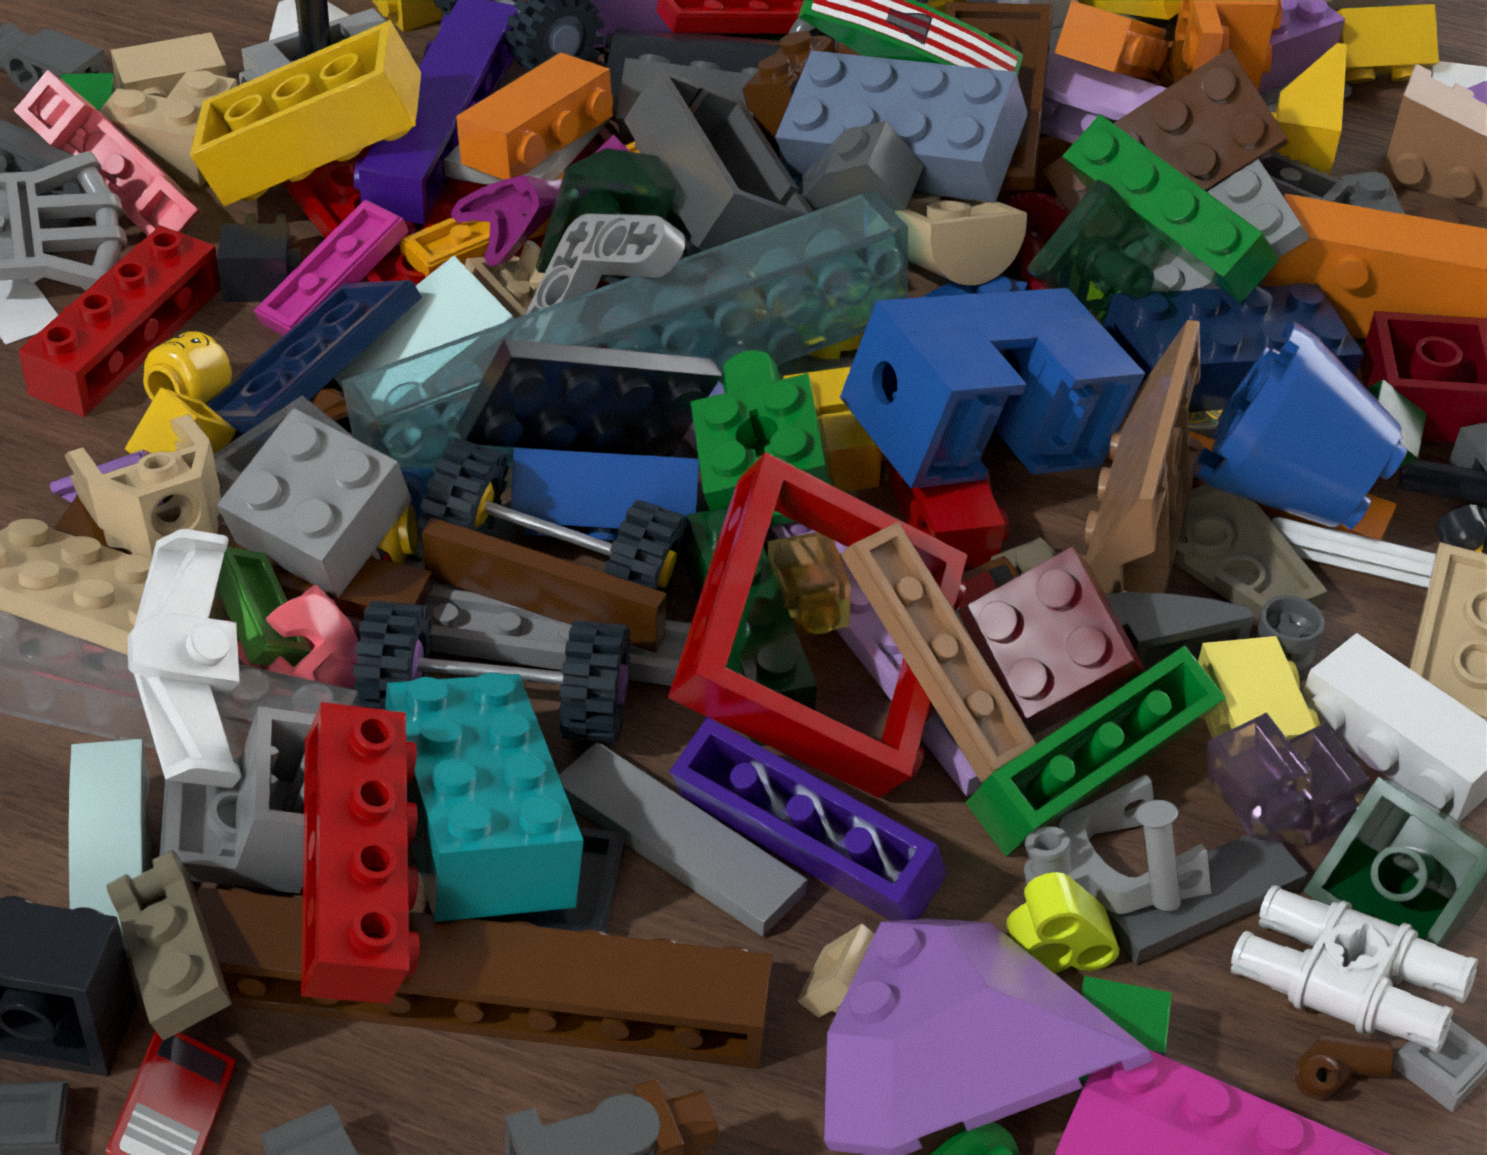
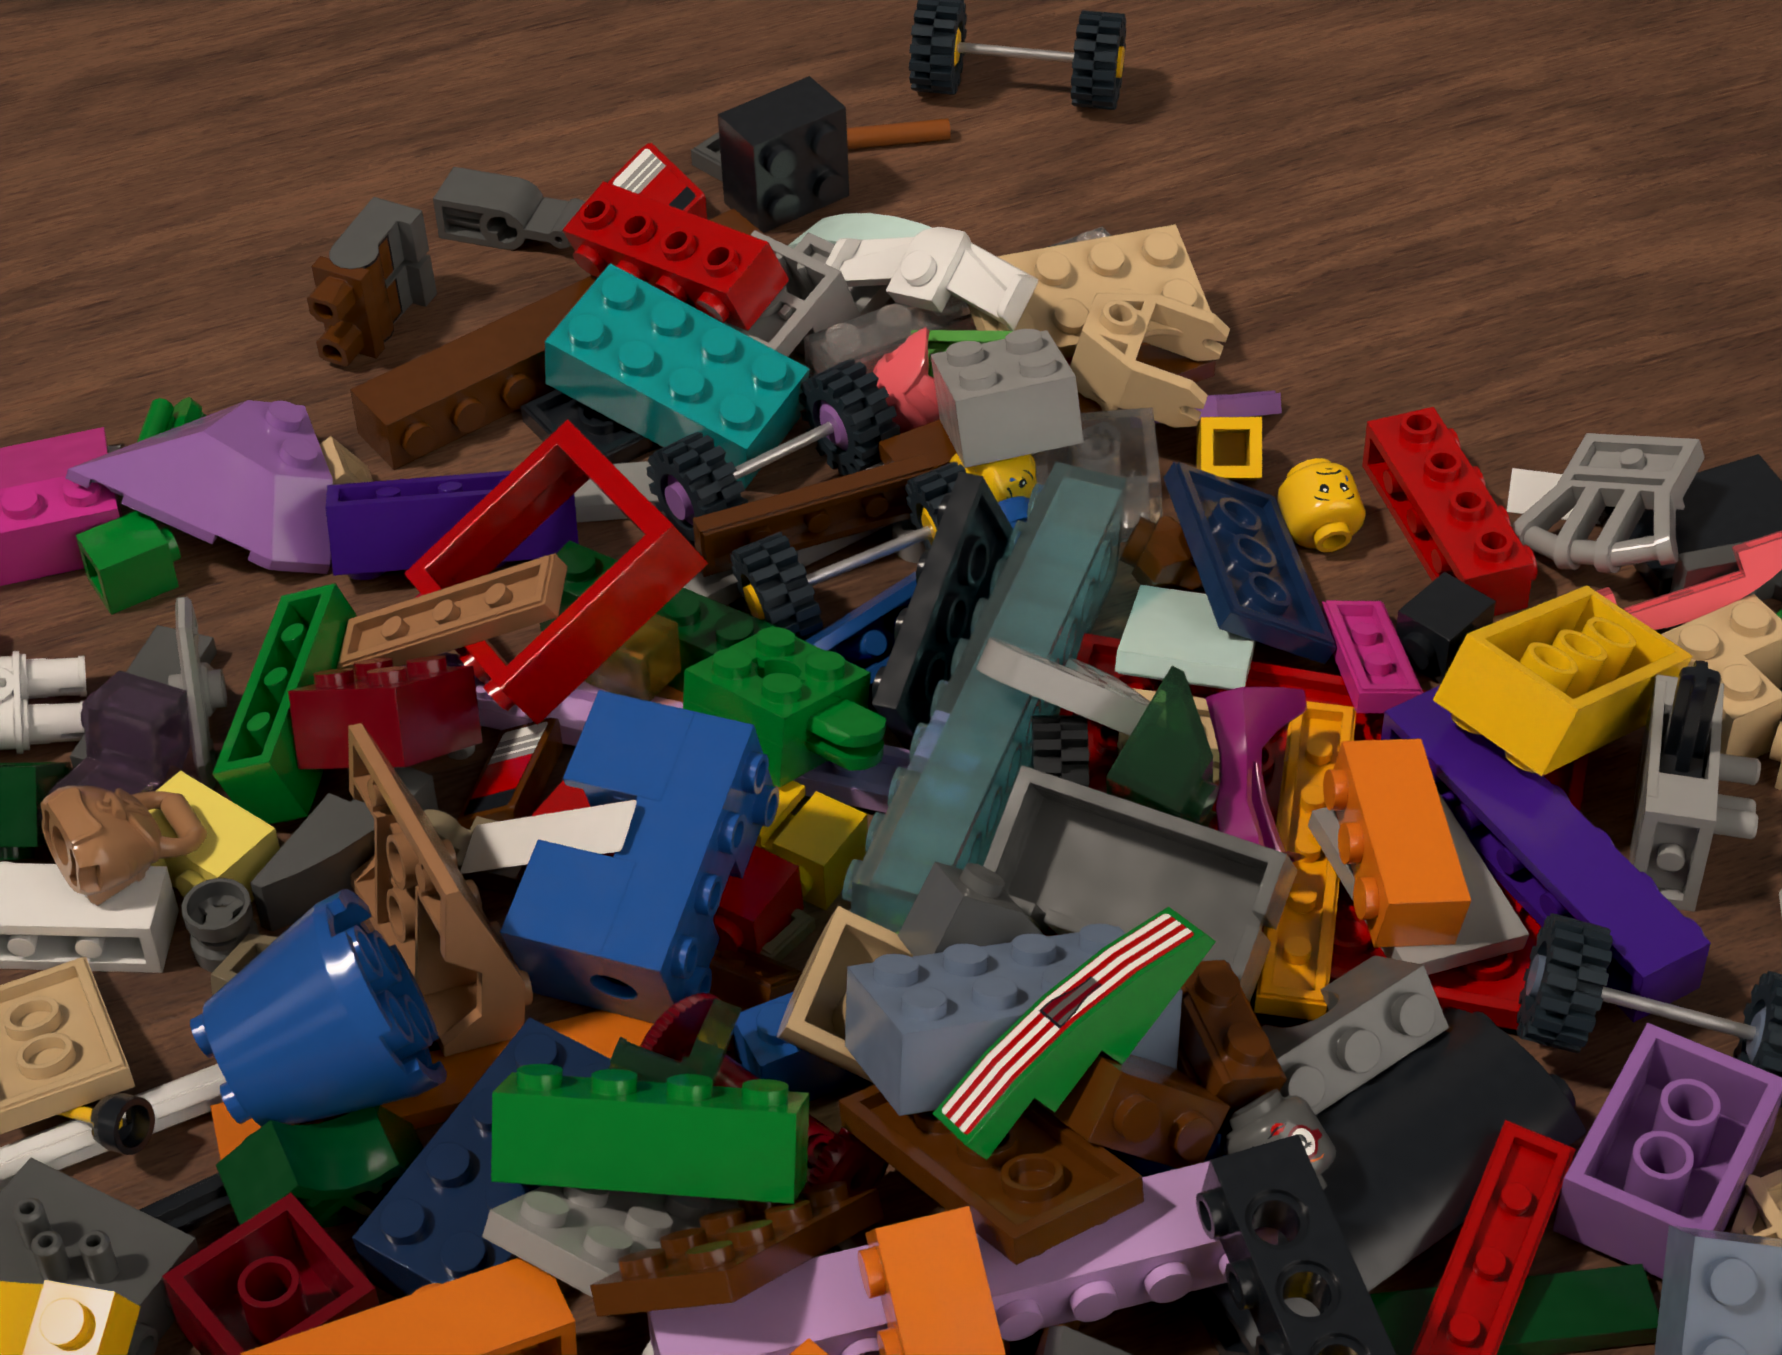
camera: 140 degrees right, 0 degrees up
(169, 946) = (738, 198): dark tan plate -> none
(1038, 443) = (512, 841): none -> white sticker
(1063, 925) = (220, 583): neon yellow piece -> none
(1071, 853) = (235, 642): light grey piece -> none
(1185, 785) = (204, 690): none -> light grey piece
(1350, 679) = (111, 838): none -> medium nougat piece

